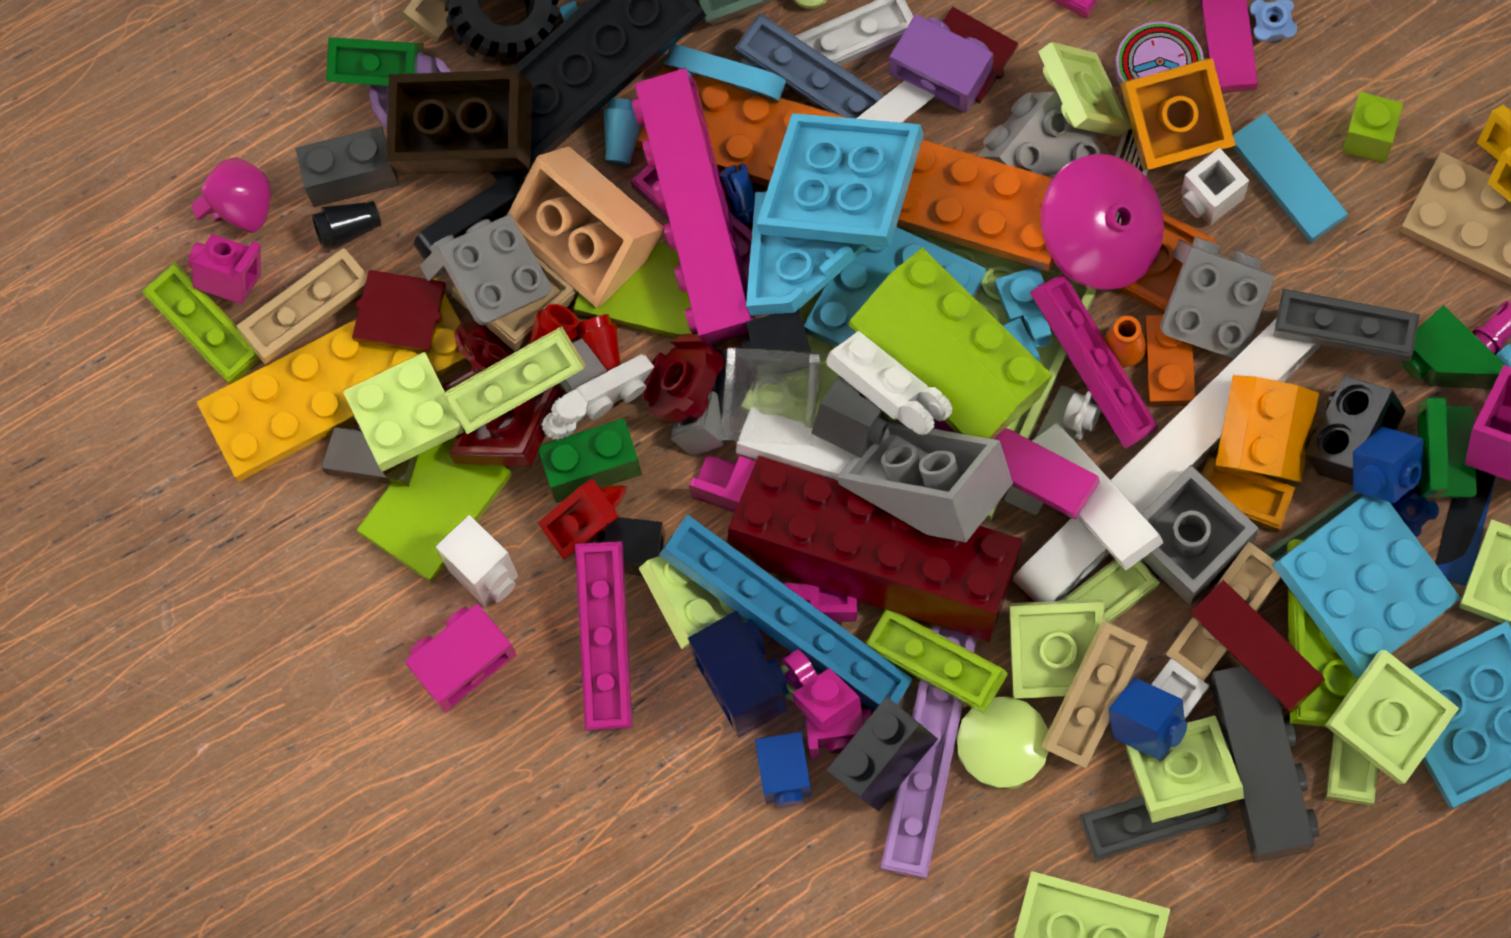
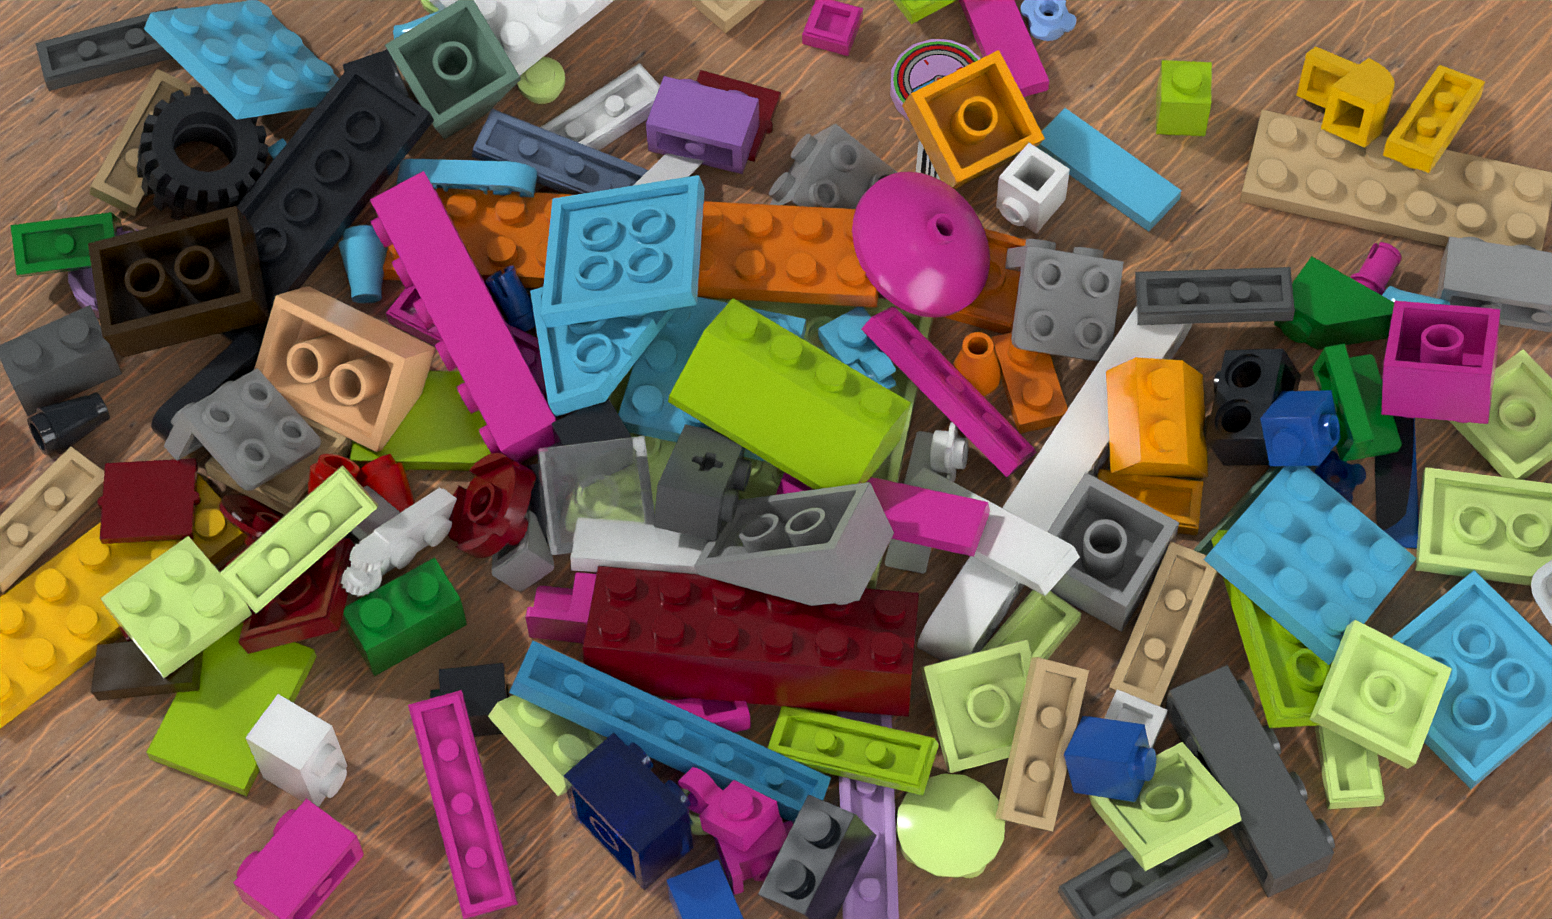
camera: 20 degrees left, 10 degrees down
(582, 516) = (407, 676): red tile -> none
(888, 384) = (730, 451): white hinge -> none
(1084, 89) = (866, 117): yellowish green plate -> none
(1257, 646) = (1212, 650): dark red tile -> none

